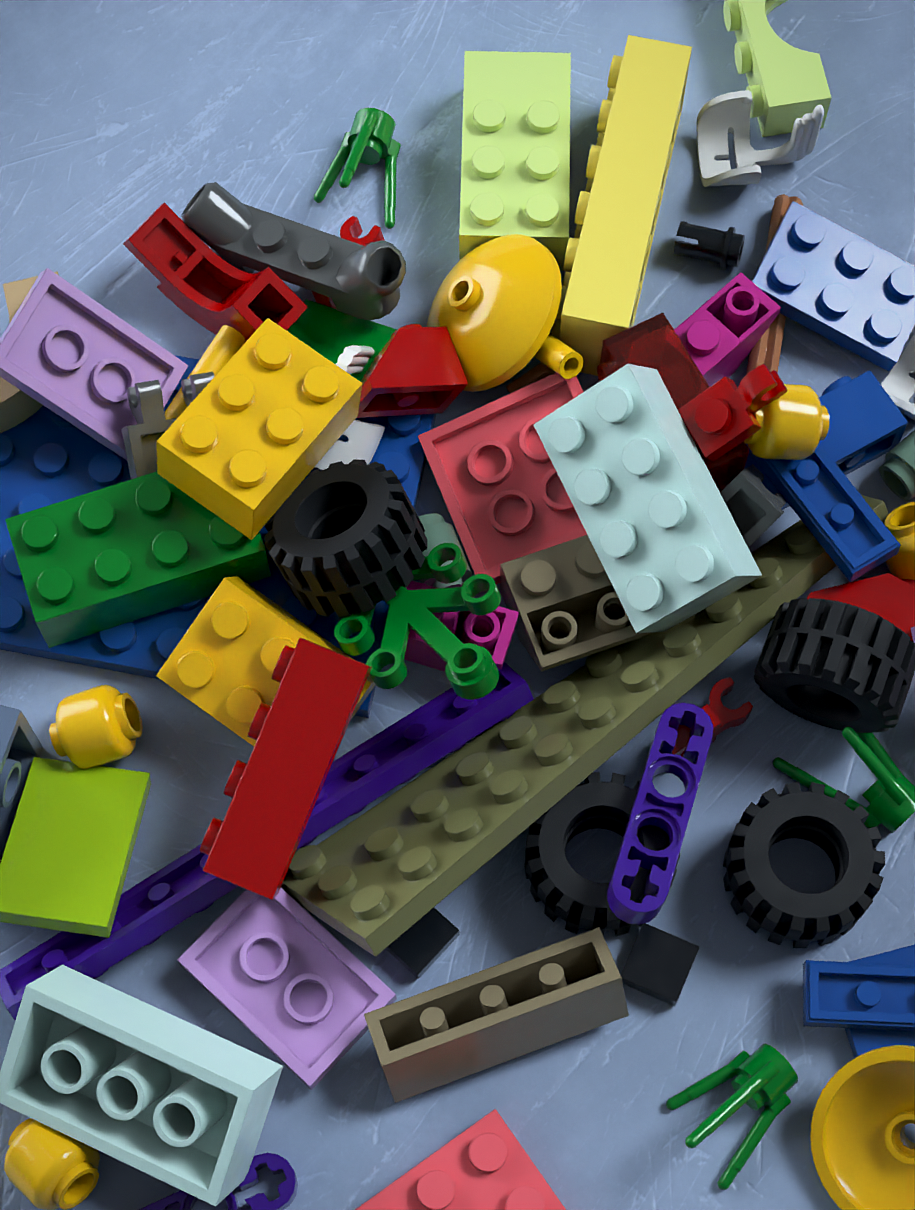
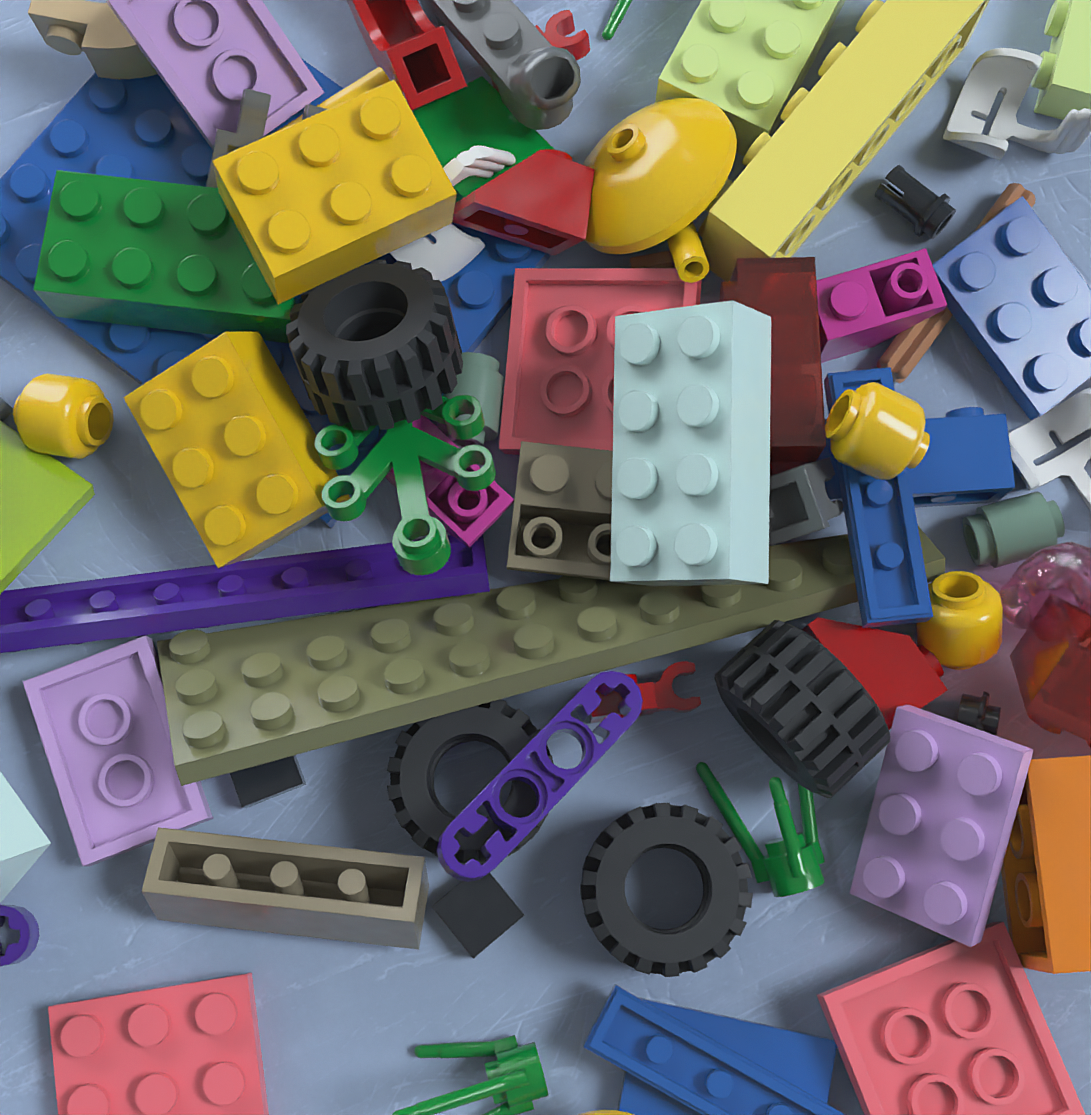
camera: 25 degrees right, 10 degrees up
(286, 768) = (193, 552): red brick -> none
(725, 413) = (817, 395): red plate -> none

